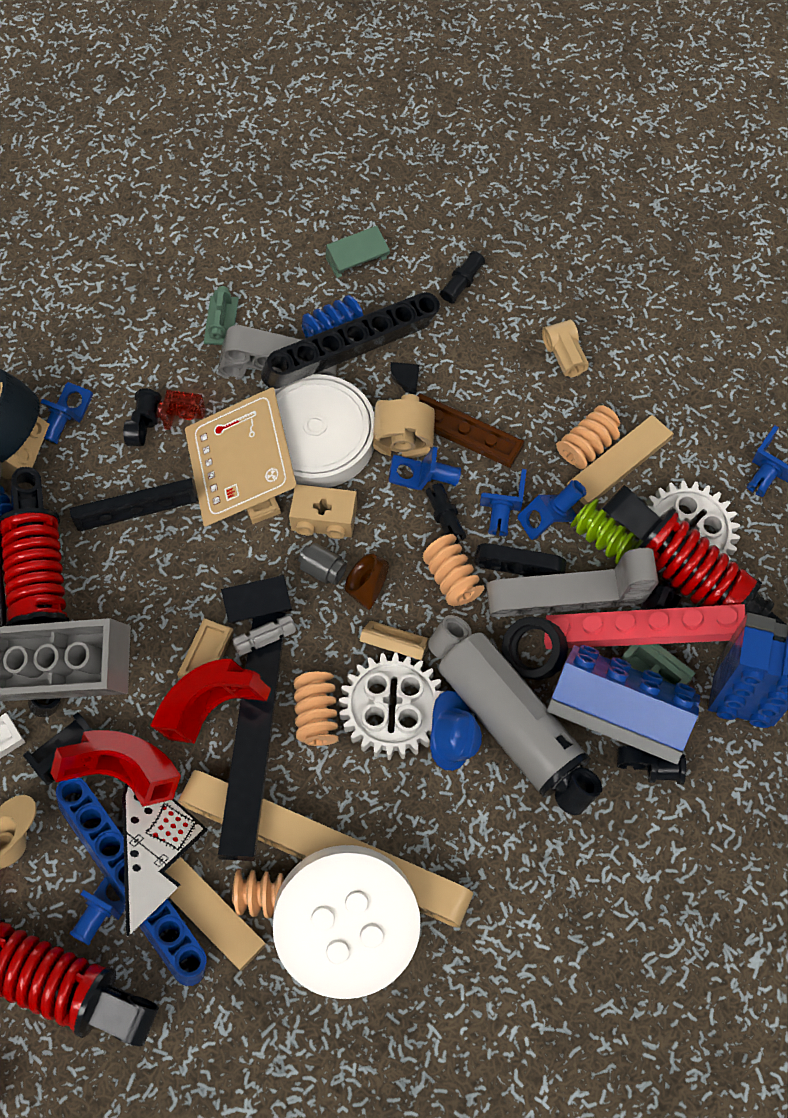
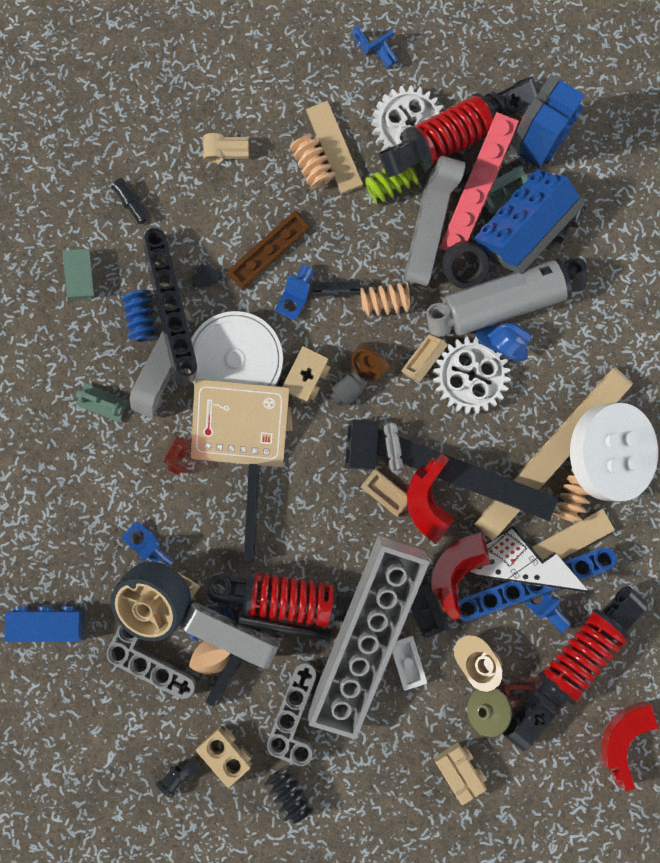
camera: 70 degrees left, 20 degrees up
(142, 418) = (173, 485): black connector -> none
(313, 710) = (459, 428): light nougat piece -> none
(403, 426) = (260, 293): tan brick -> none
(501, 507) = (345, 247): blue bracket -> none
(518, 560) = (393, 250): black beam -> none
(552, 508) = (361, 211): blue bracket -> none

